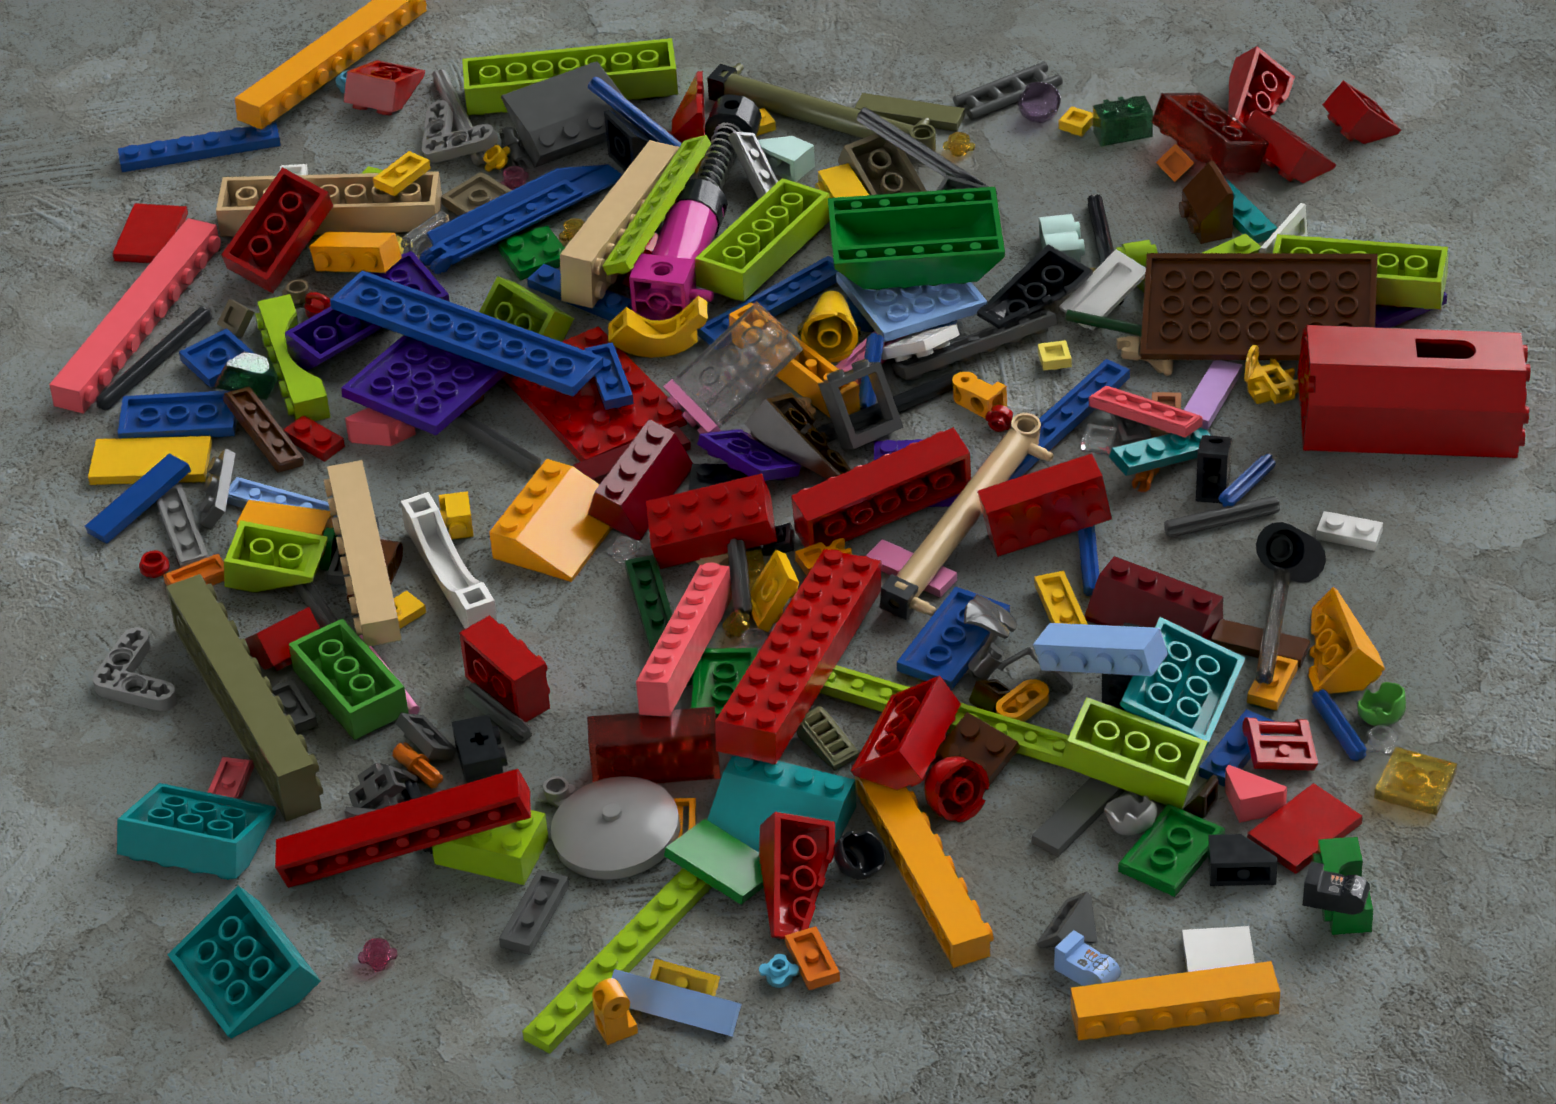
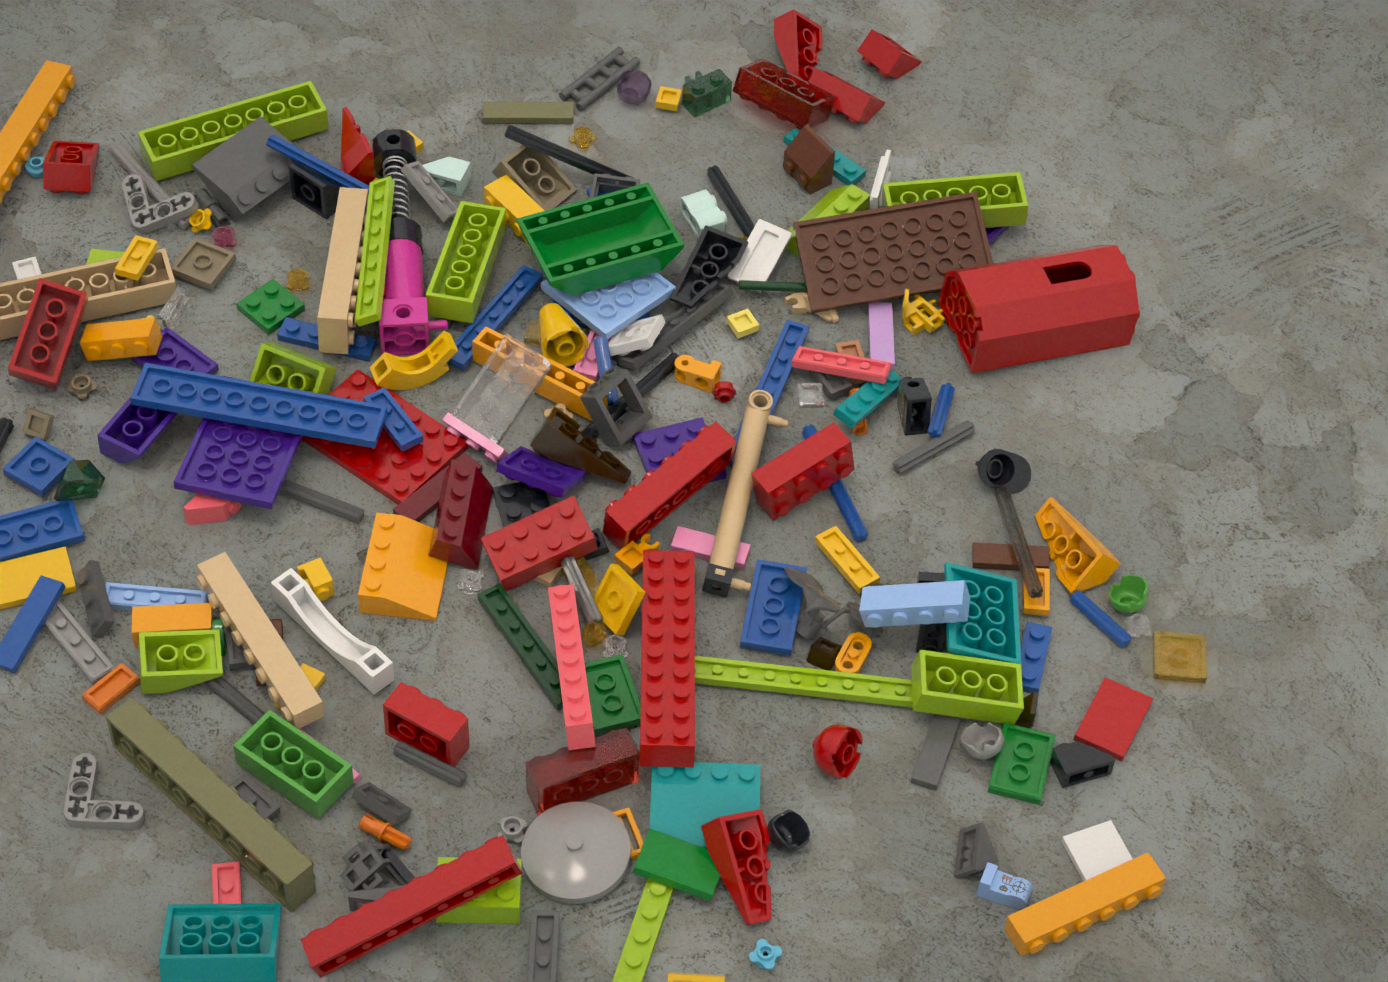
camera: 25 degrees left, 10 degrees up
(154, 564) = (69, 686): red plate -> none
(263, 429) = (111, 530): reddish brown tile -> none
(272, 644) = (216, 735): red slope -> none
(303, 390) = (133, 487): lime arch -> none
(314, 438) = (156, 528): red plate -> none
(315, 303) = (105, 397): red tile -> none
(478, 748) = (432, 806): black brick -> none
(514, 213) = (242, 272): blue hinge -> none
(804, 107) = (445, 125): olive piece -> none
(812, 958) = (788, 936): orange plate -> none
(820, 721) = (708, 713): olive slope -> none
(907, 735) = (786, 714): red slope -> none
(927, 872) = (839, 825): light orange brick -> none
(980, 744) = (834, 706): reddish brown plate -> none
(1138, 250) = (771, 213): lime brick -> none
(1141, 596) = (917, 542): dark red slope -> none
(1175, 162) = (763, 124): orange panel -> none
(1252, 795) = (1064, 700): coral slope -> none
(1280, 752) = (1070, 655): red plate -> none
(1334, 891) = (1173, 778): black leg -> none
(1344, 858) = (1174, 784): green arch -> none
(1349, 530) = (1034, 438): white plate -> none

